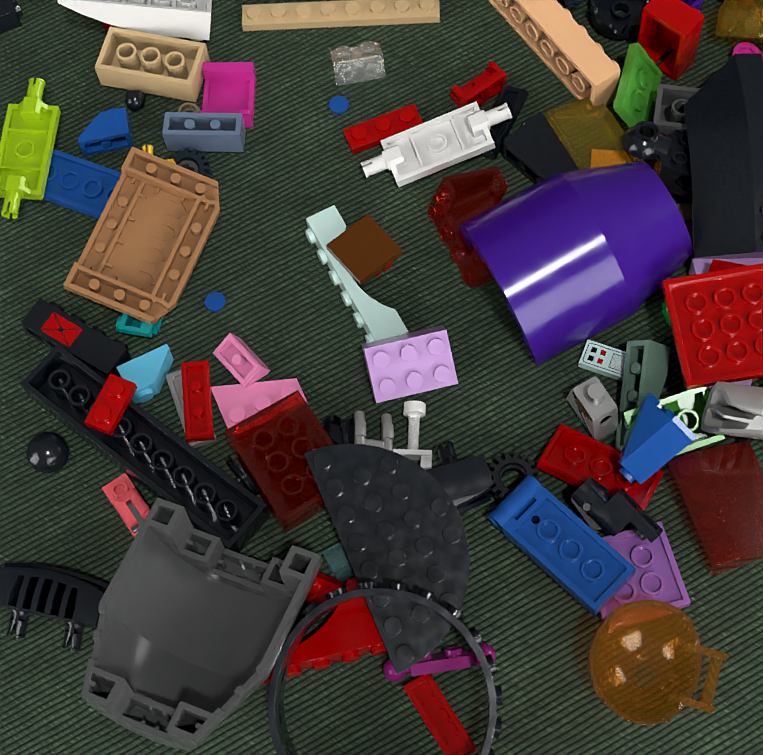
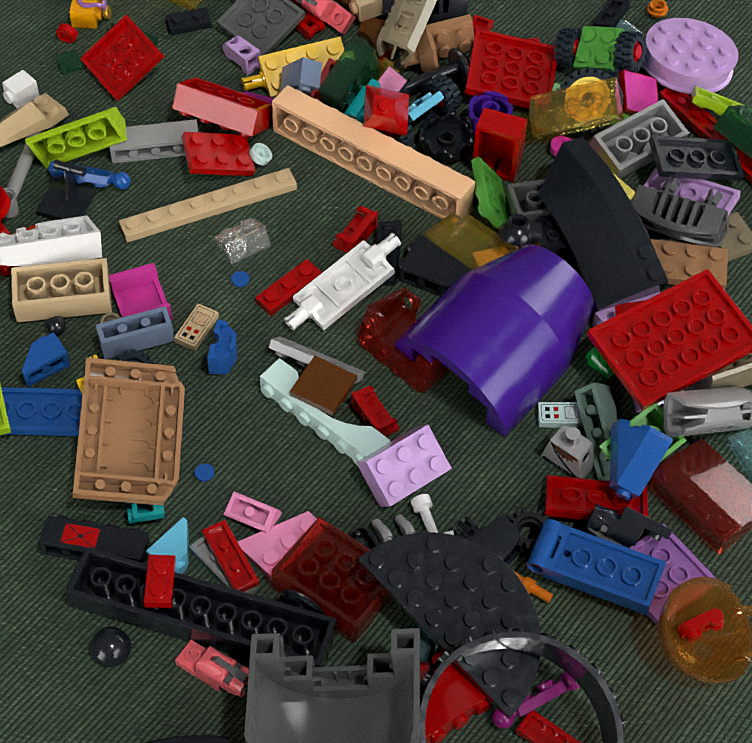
camera: 30 degrees left, 10 degrees down
(271, 143) = (196, 327): none -> tan tile
(283, 181) = (224, 352): none -> blue cylinder
(353, 197) = (303, 355): none -> light grey plate
(409, 294) = (372, 411): none -> red hinge
(486, 536) = (534, 589): none -> orange bar
(636, 650) = (693, 628): none -> red plate

